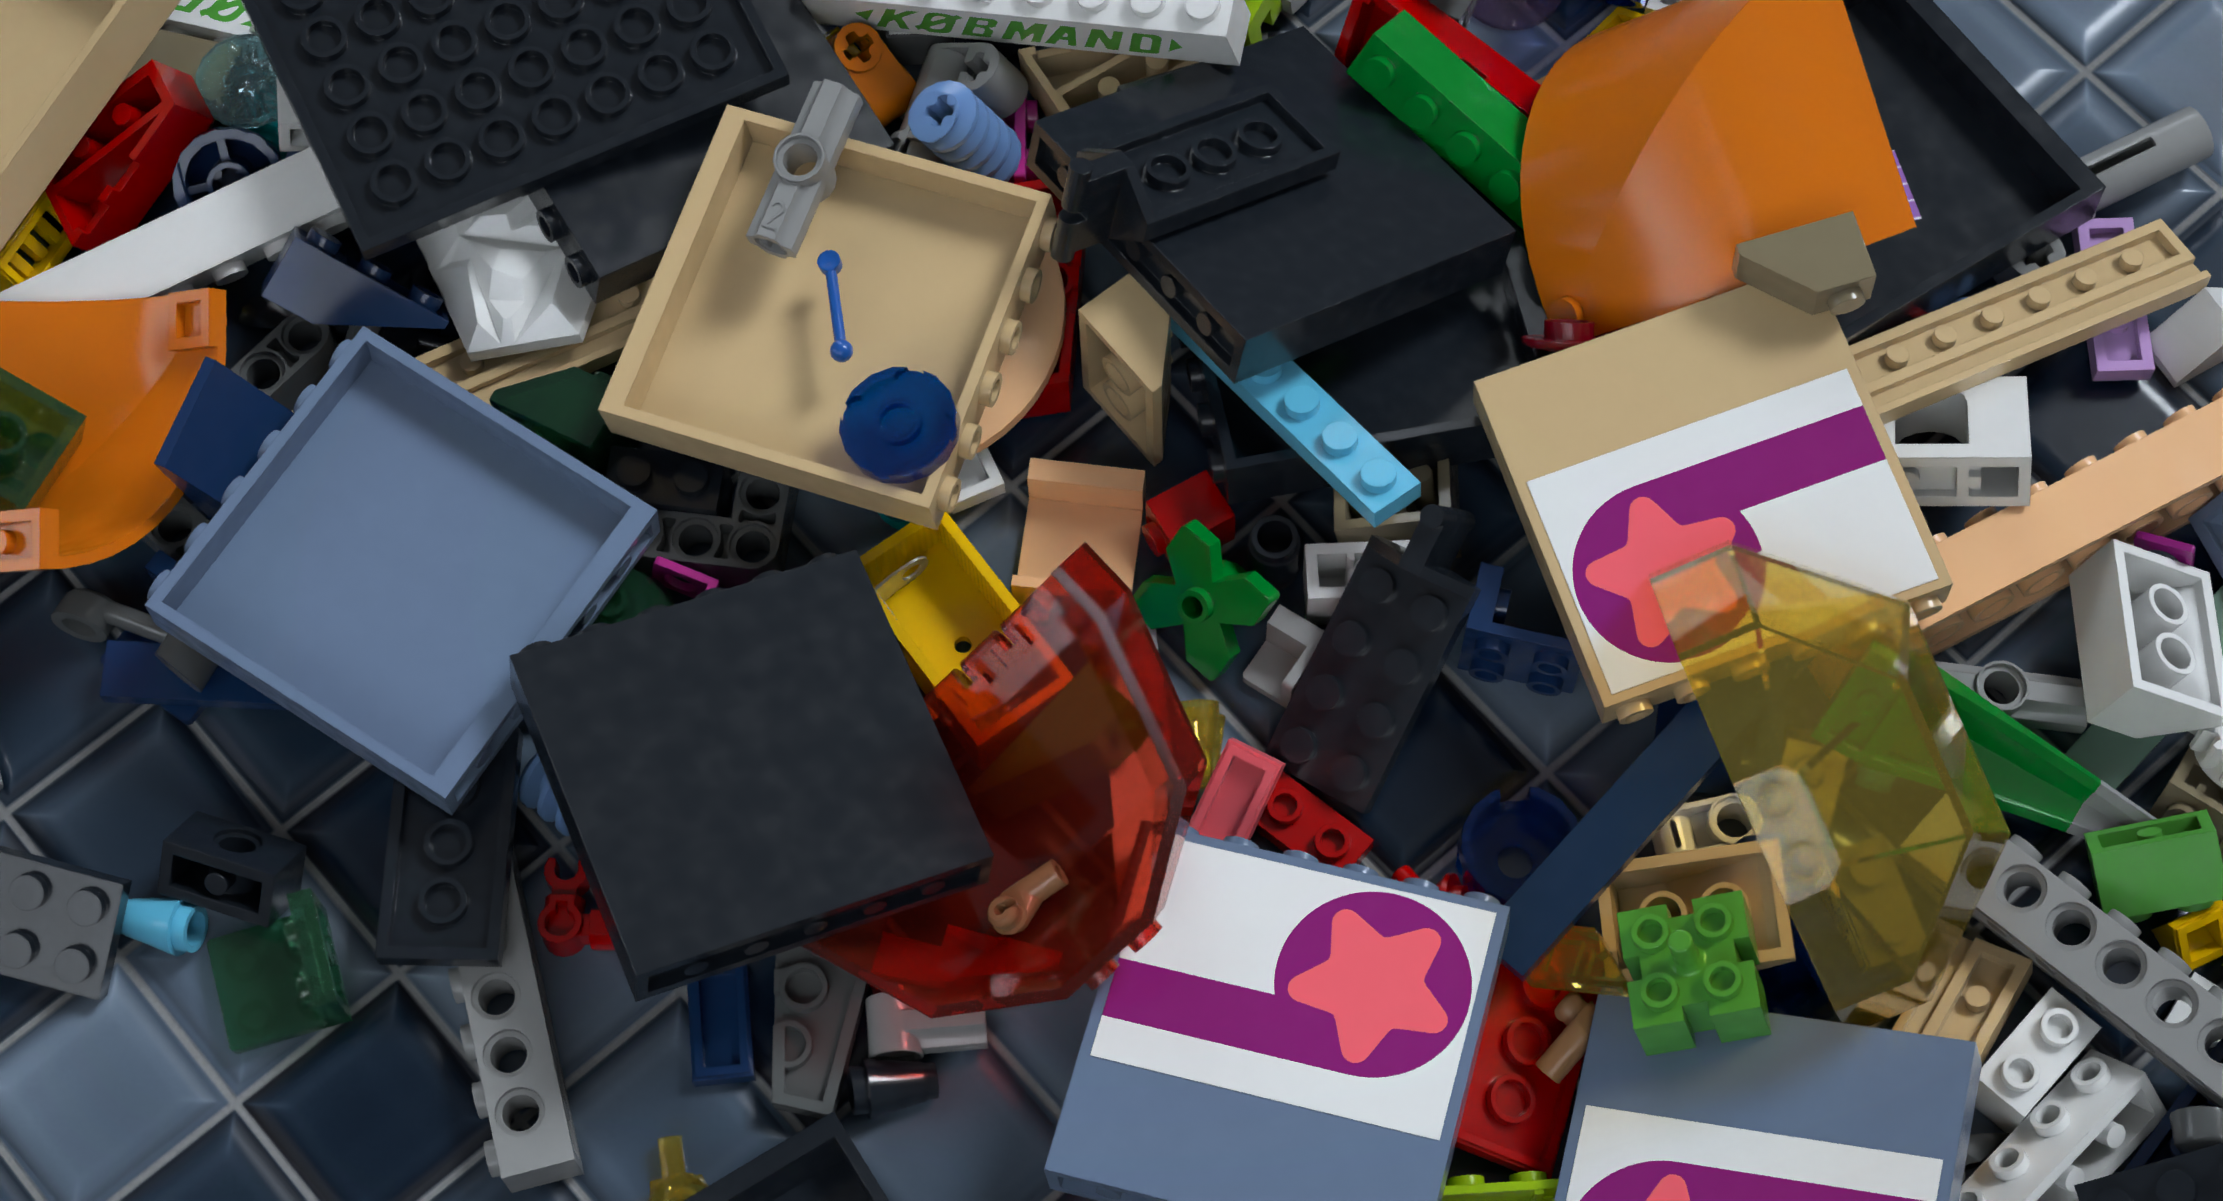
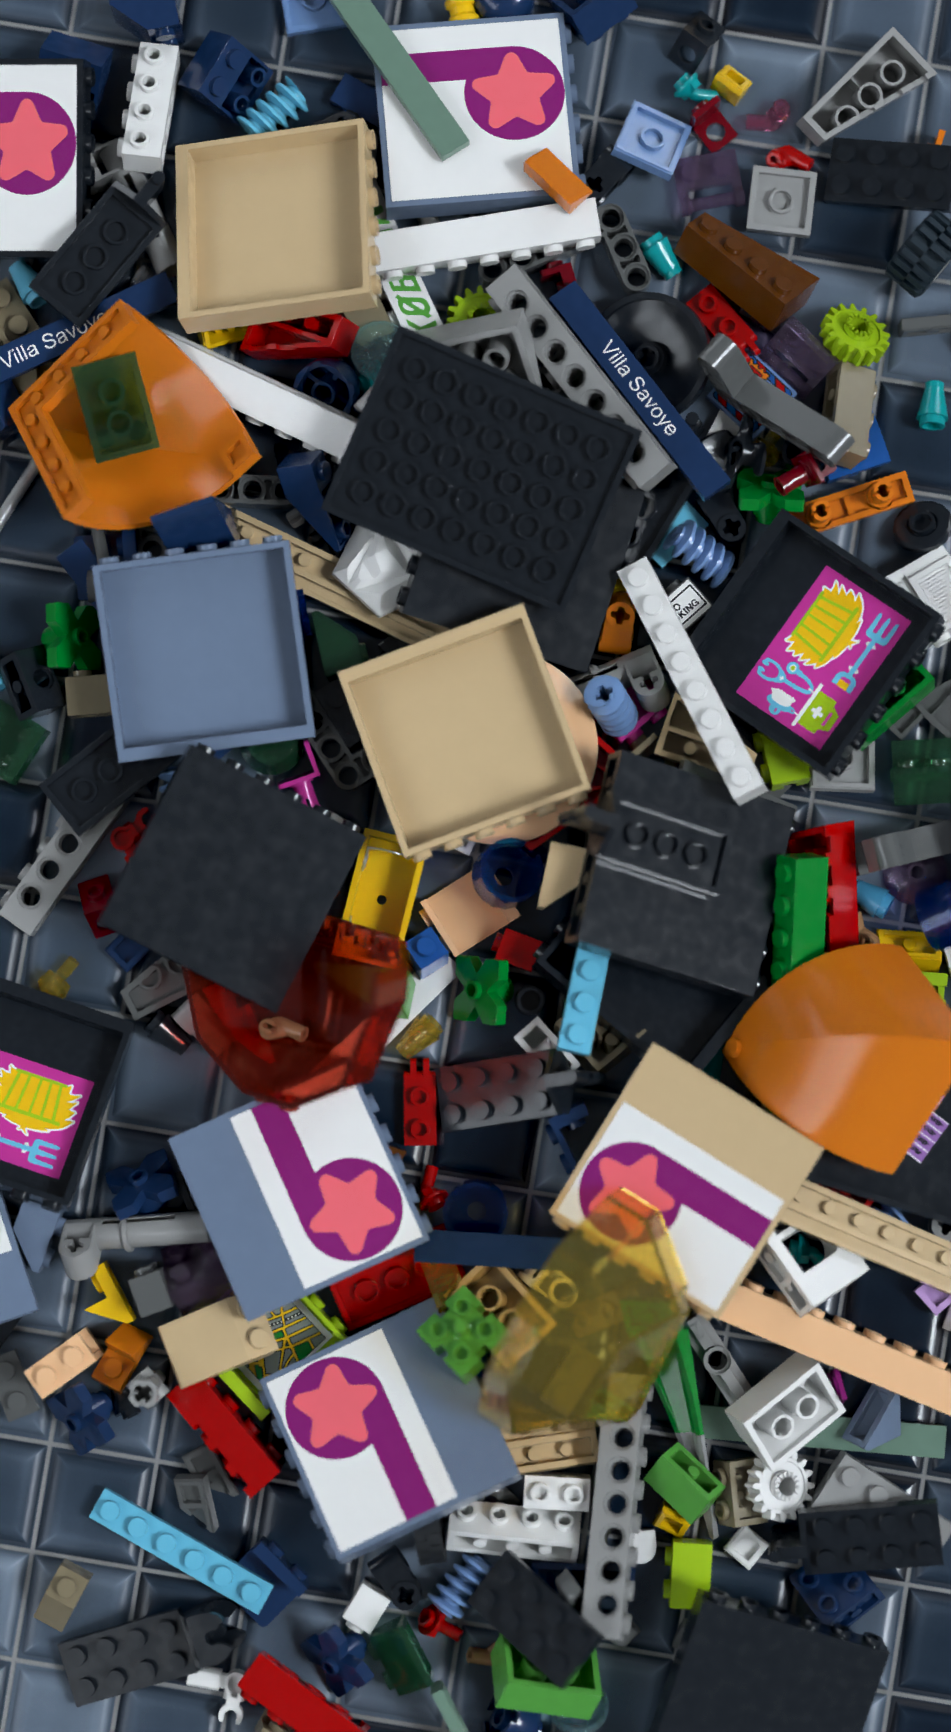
camera: 50 degrees right, 20 degrees up
(222, 762) = (69, 637): none -> green plant
(331, 801) = (87, 695): none -> dark tan brick
(617, 1030) = (94, 896): none -> dark red bracket
(793, 199) = (493, 678): light grey piece -> none
(830, 265) = (482, 717): blue hinge -> none
(900, 425) = (430, 813): clear blue tile -> none
(1094, 417) = (525, 872): none -> clear blue piece
(1236, 792) = (403, 1075): coral tile -> none
(1283, 655) = (487, 1042): light grey panel -> none
(1512, 39) = (873, 899): none -> dark azure cone
(1561, 334) = (714, 1062): dark red piece -> none
(1573, 1040) = (409, 1299): medium nougat arm -> none
(1810, 265) = (815, 1155): dark tan slope -> none

